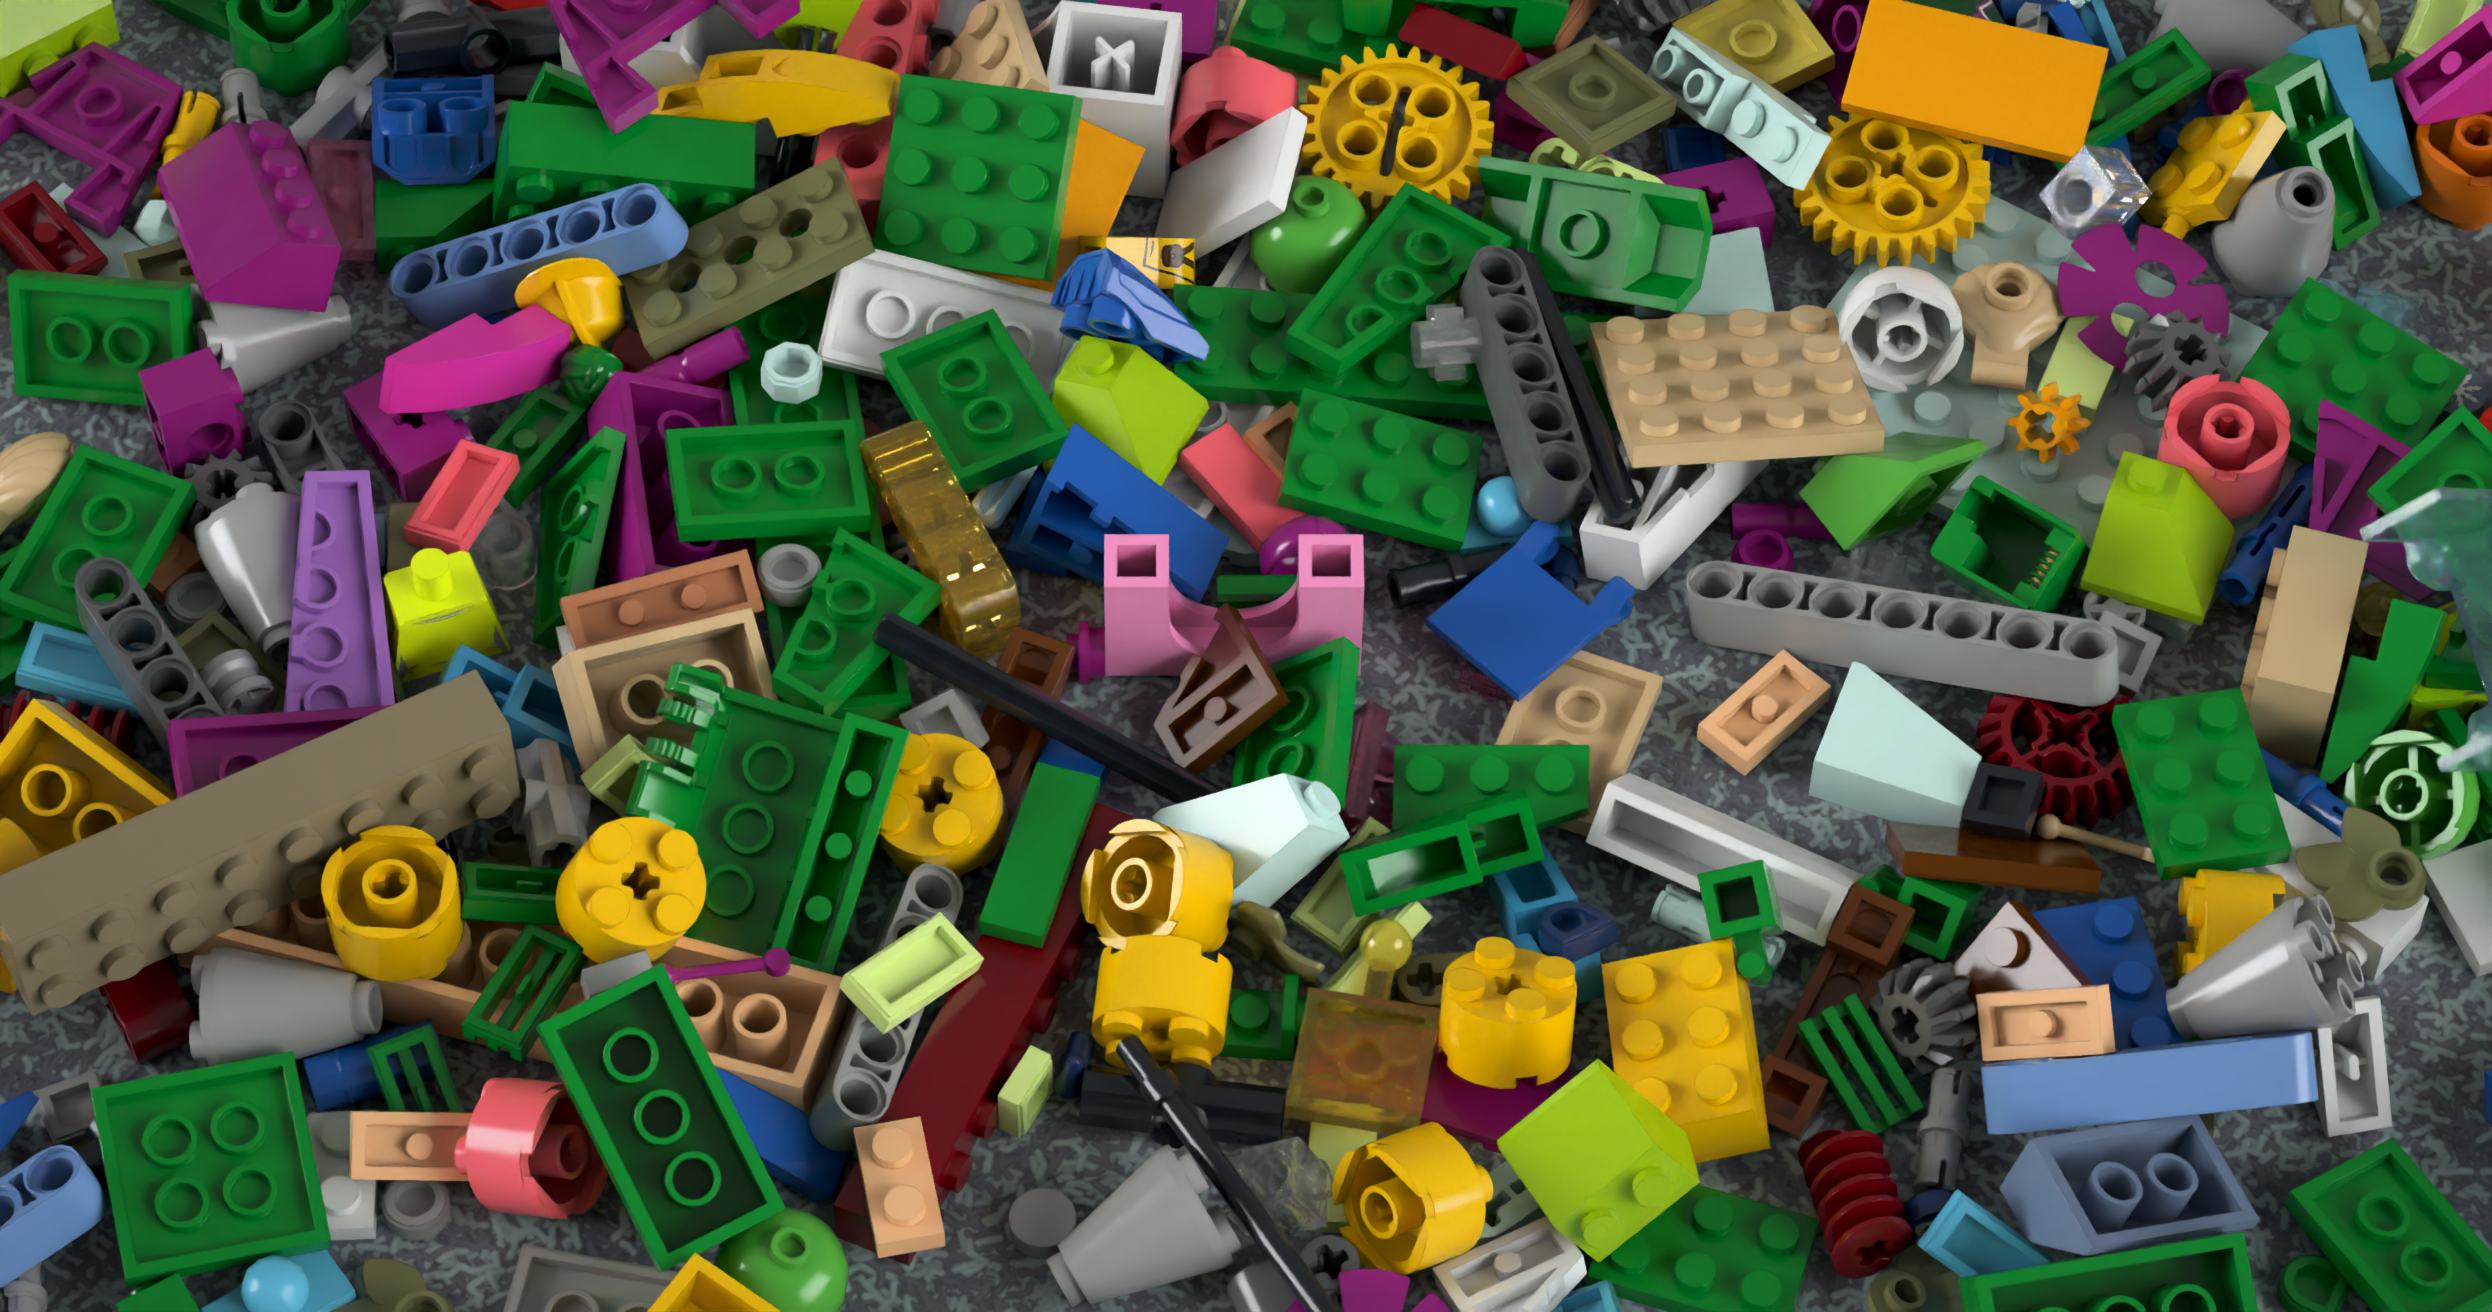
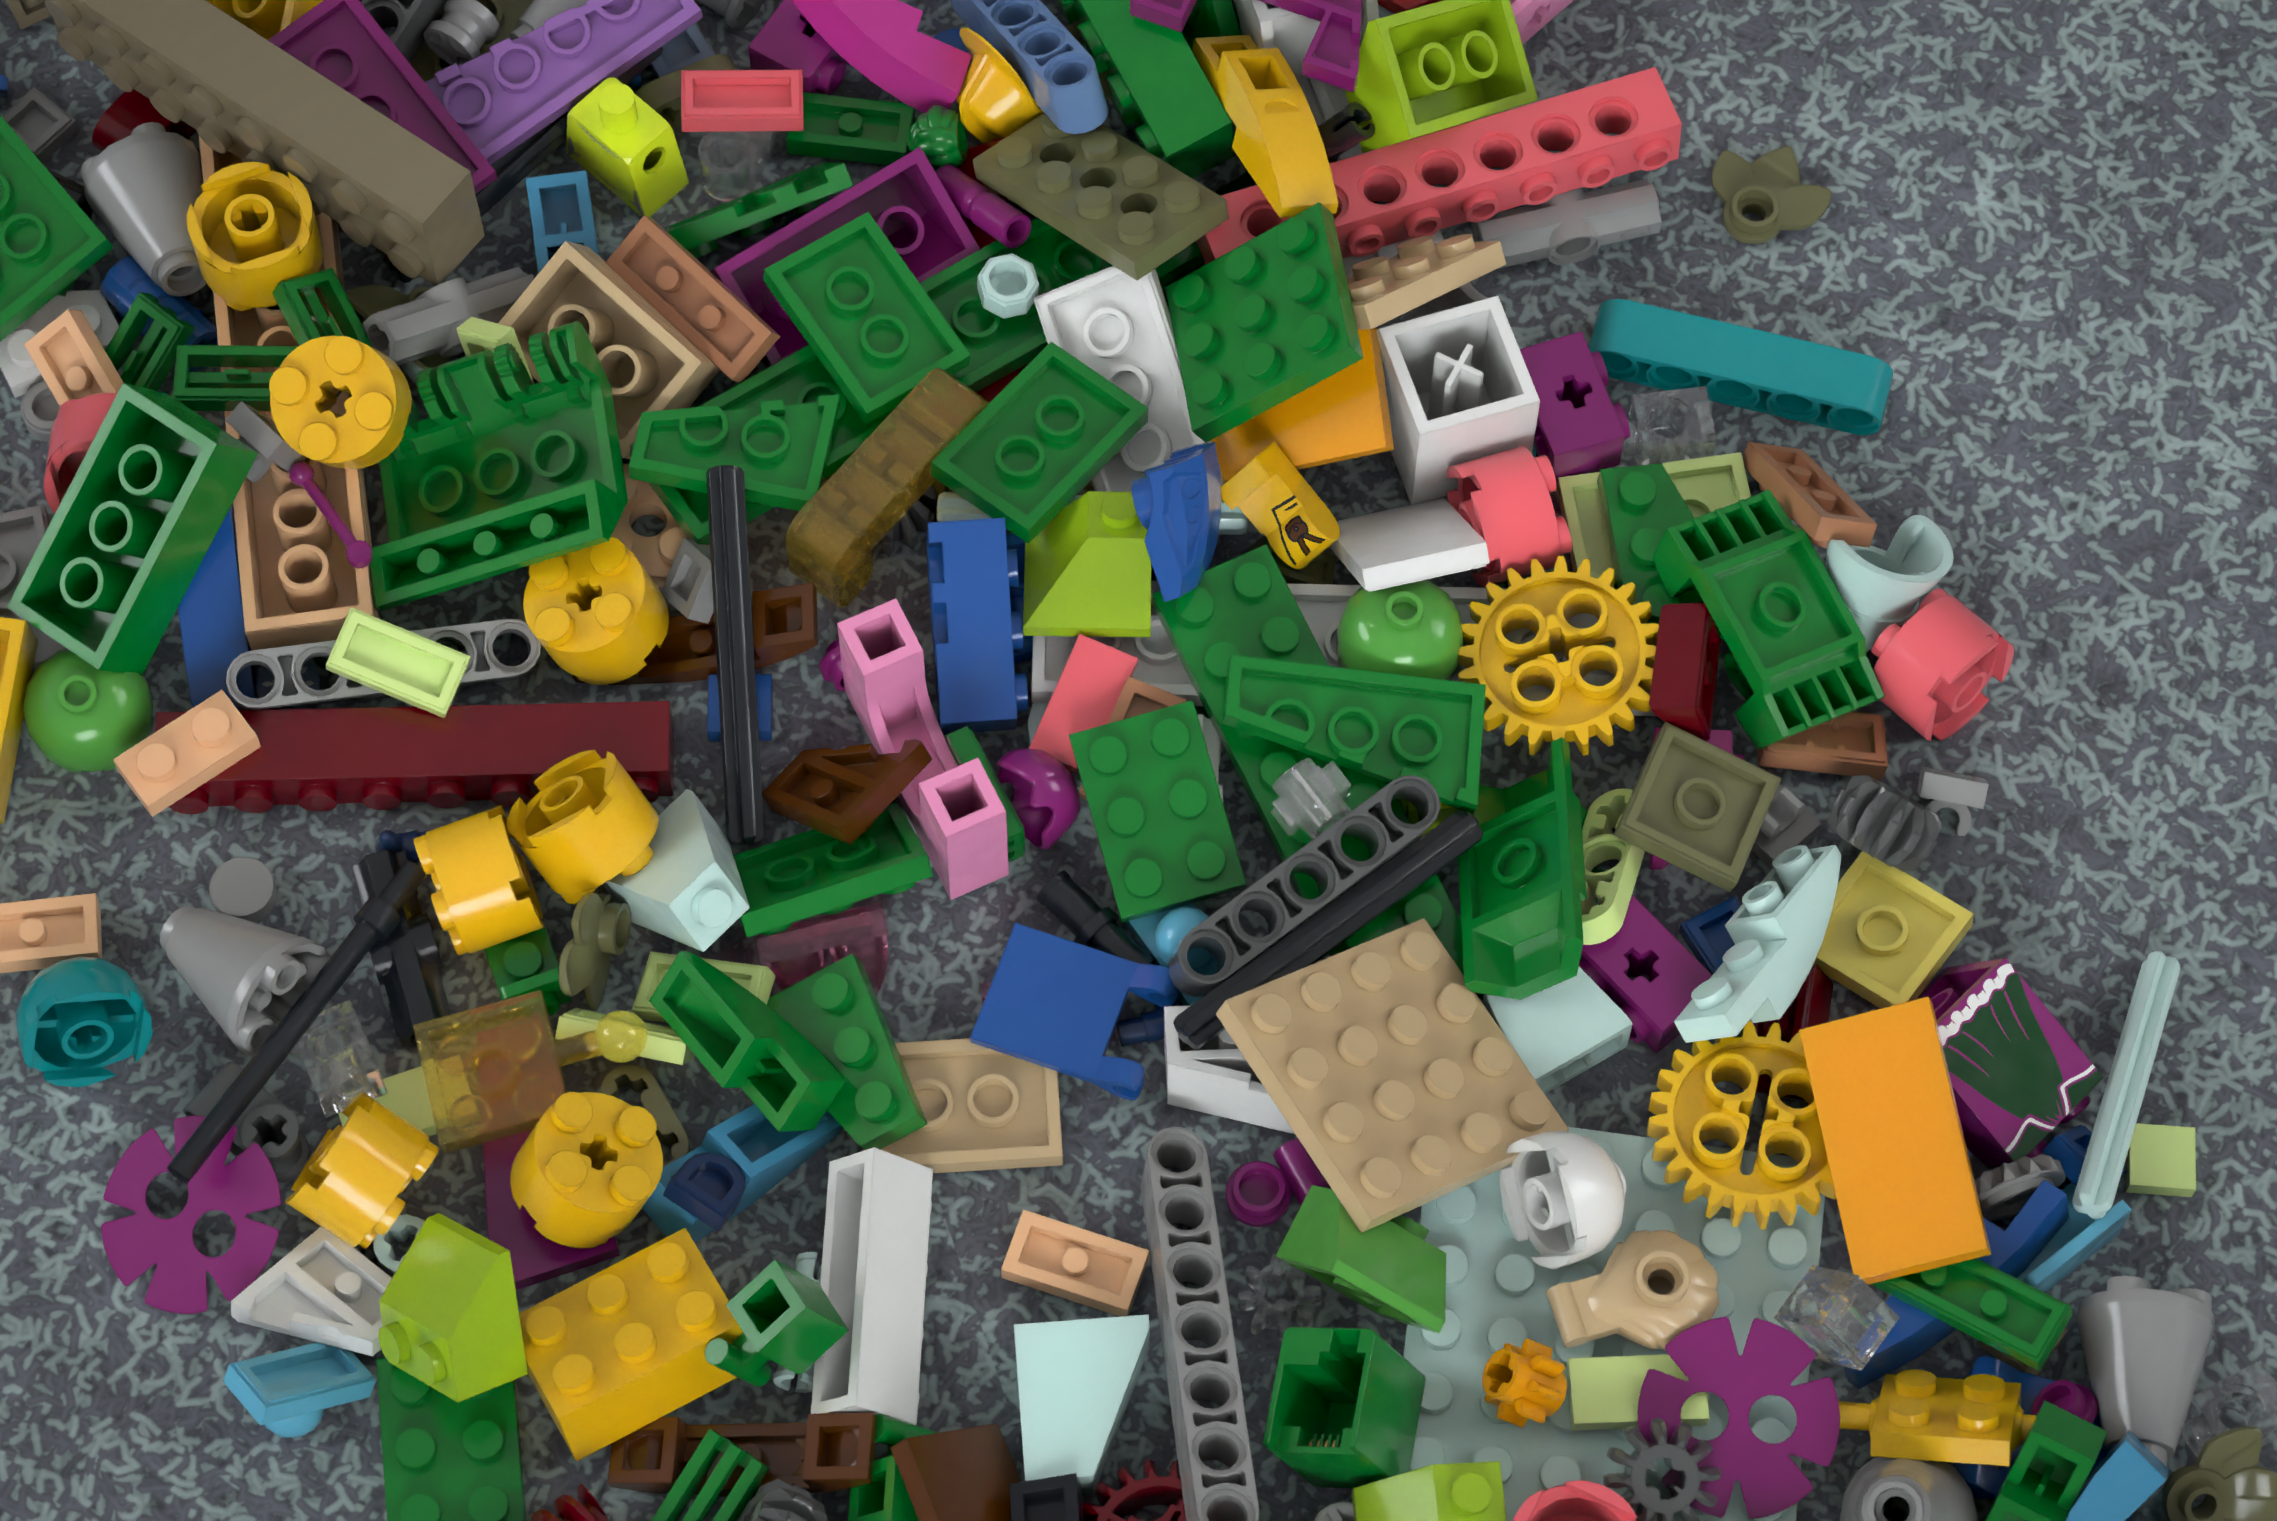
camera: 65 degrees right, 10 degrees up
(787, 574) = (781, 376): light grey tile -> none
(1025, 1092) = (357, 815): yellowish green tile -> none
(1039, 855) = (580, 711): green tile -> none

